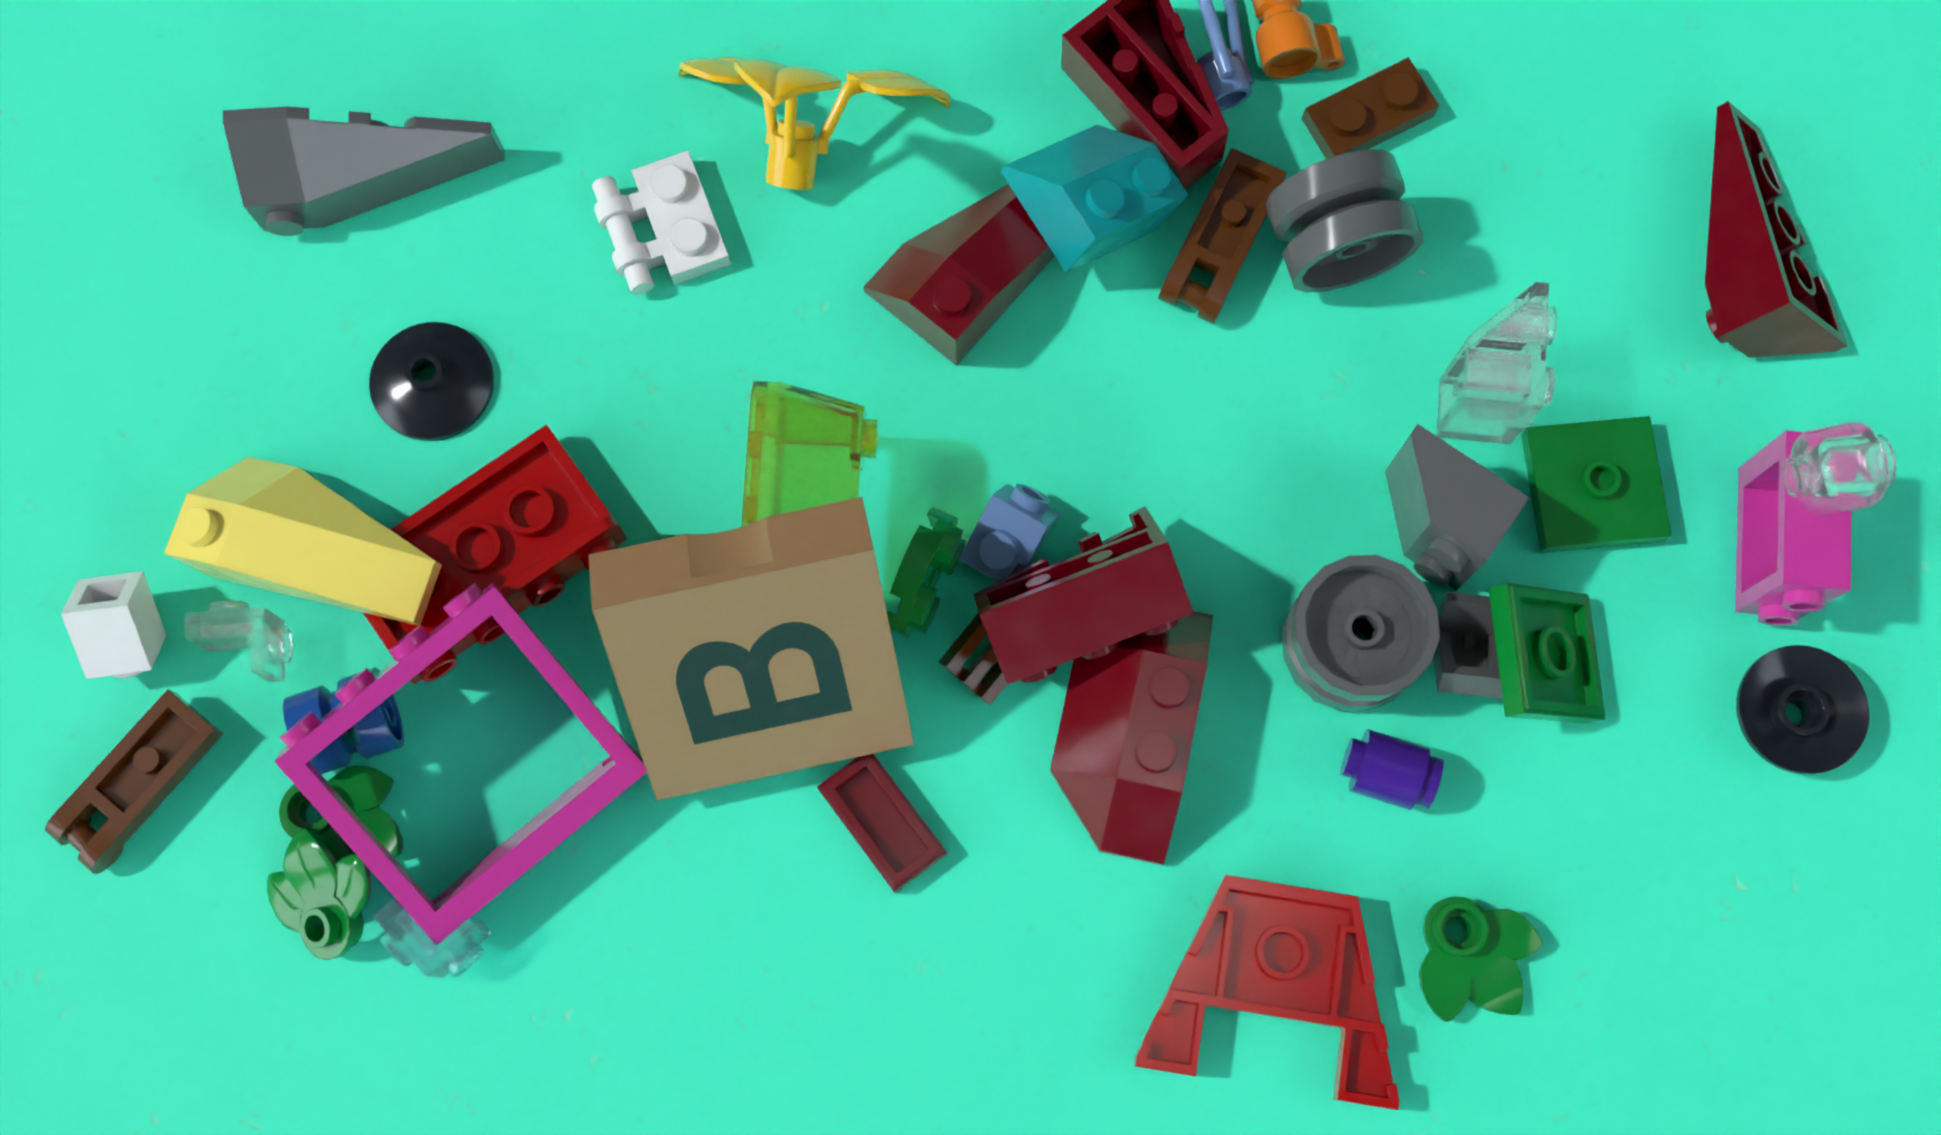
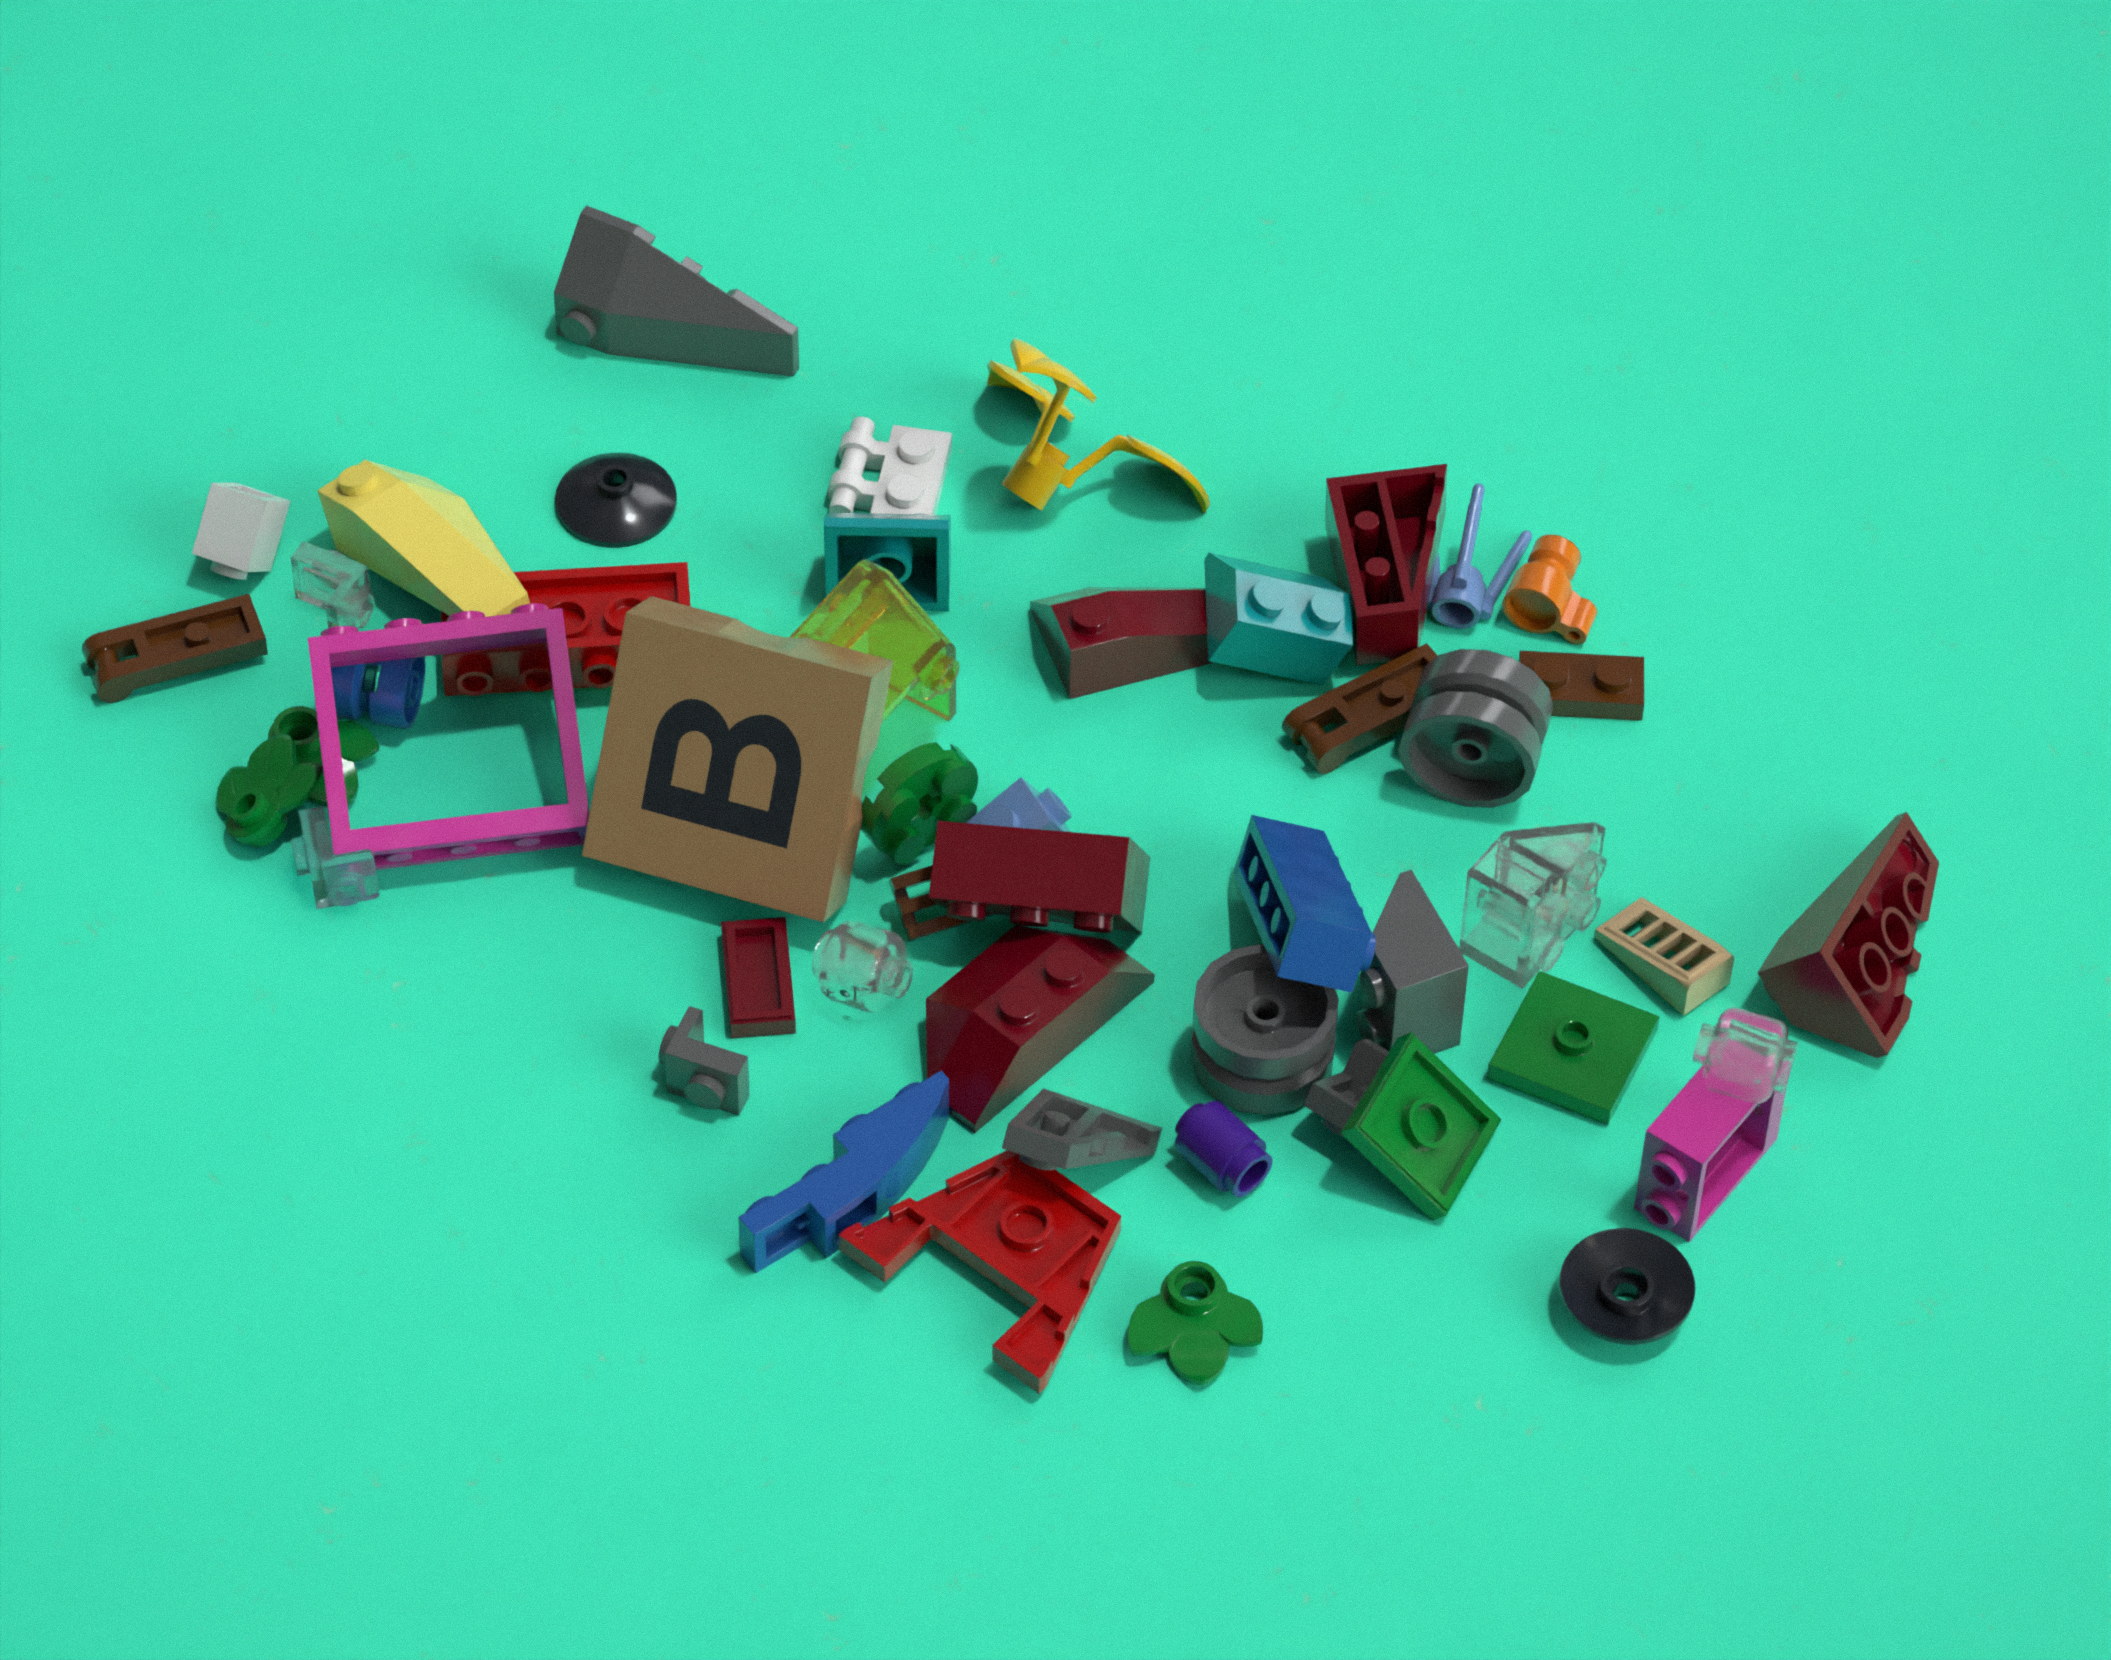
camera: 30 degrees right, 25 degrees down
(722, 318) = (906, 544): none -> teal slope
(915, 966) = (703, 1071): none -> dark grey bracket
(974, 767) = (862, 966): none -> clear head
(1115, 964) = (871, 1170): none -> blue slope
(1266, 838) = (1073, 1134): none -> dark grey wing
(1335, 505) = (1303, 904): none -> blue brick
(1636, 330) = (1680, 988): none -> tan slope

